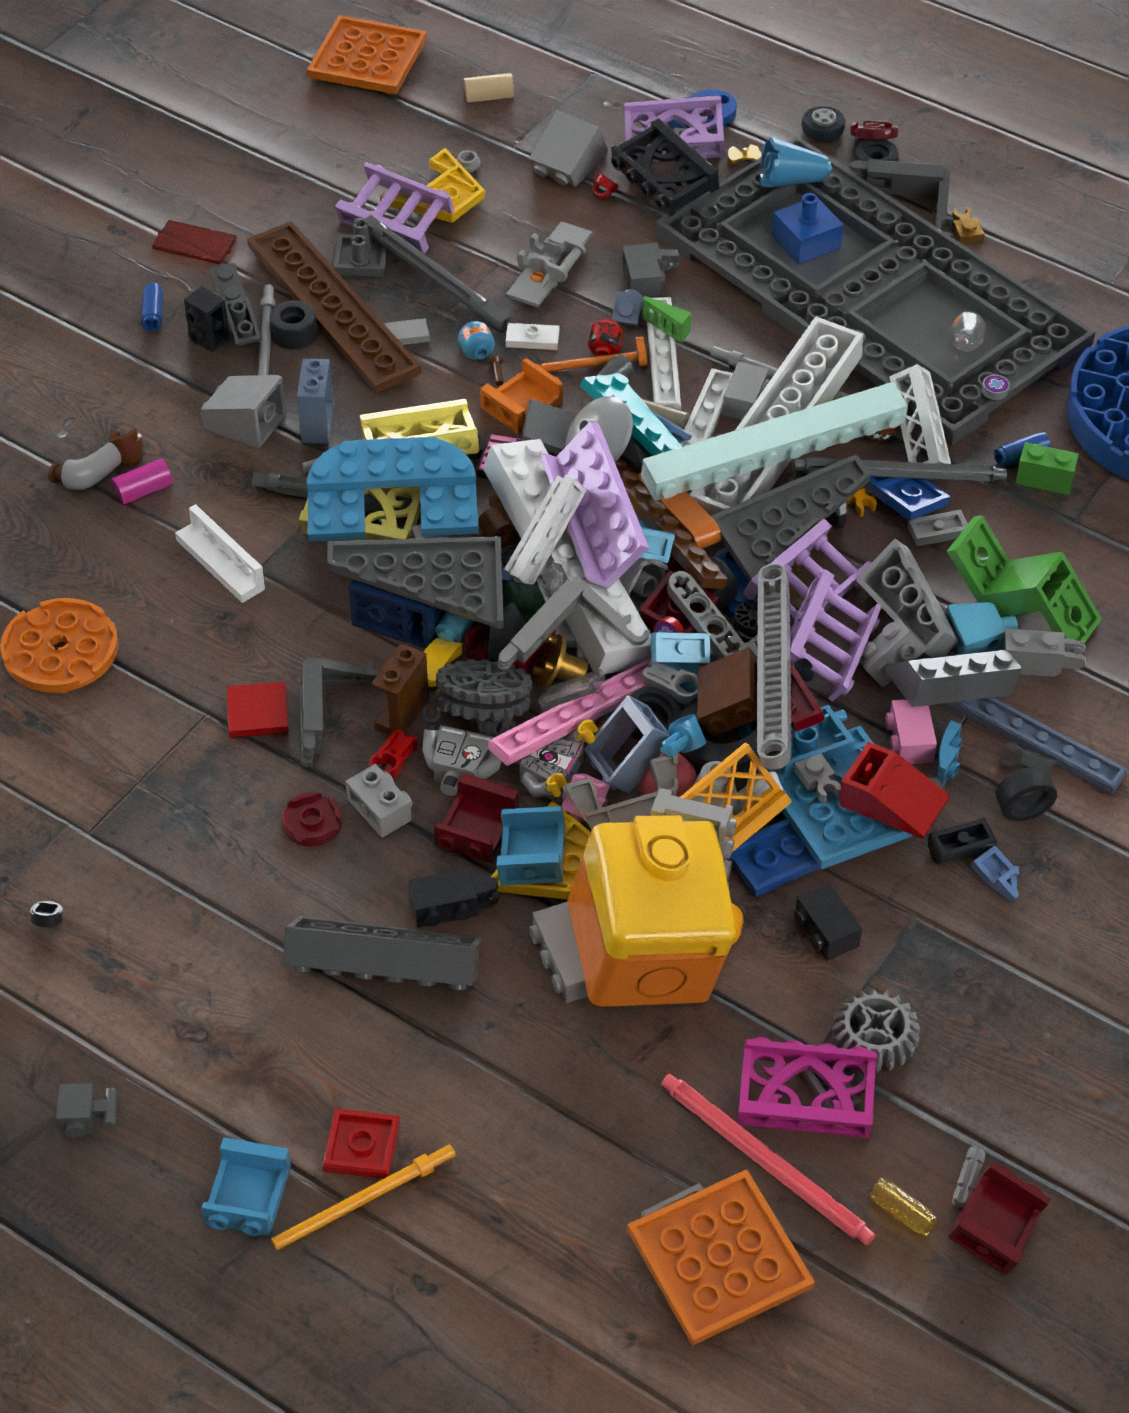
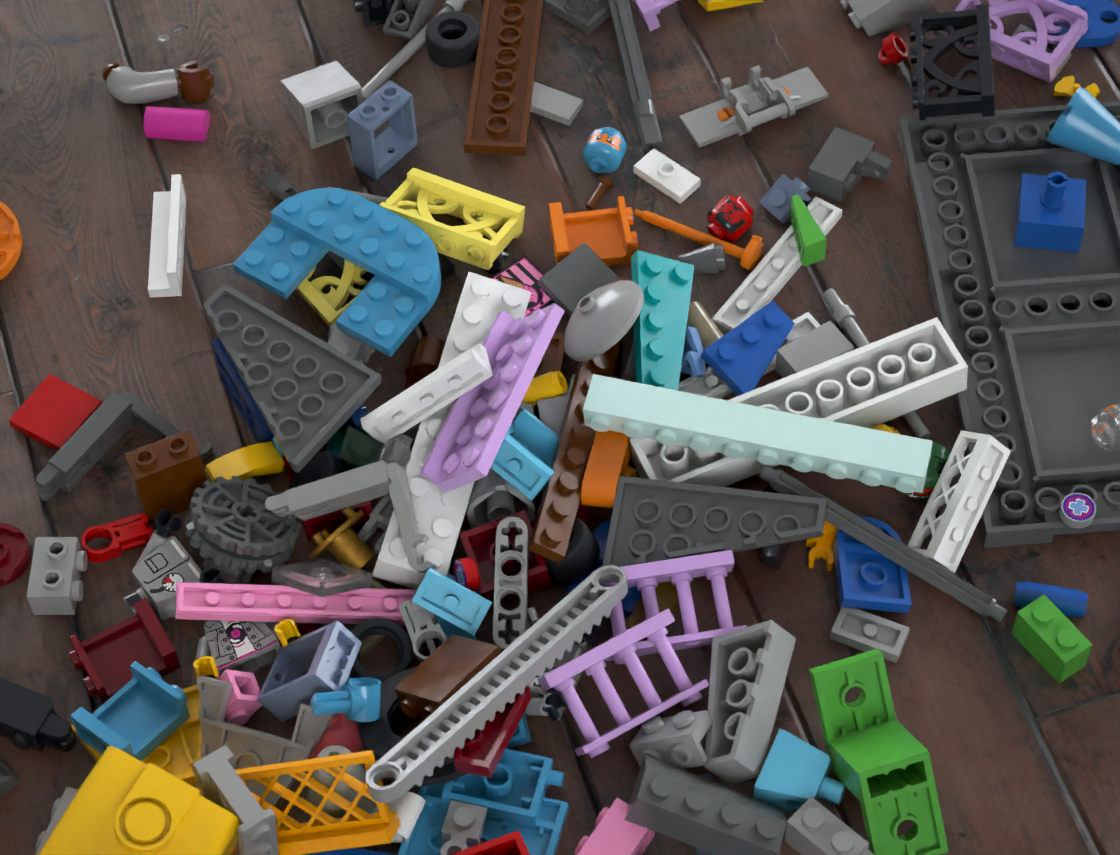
camera: 40 degrees right, 5 degrees up
(703, 406) = (749, 348): none -> blue wing

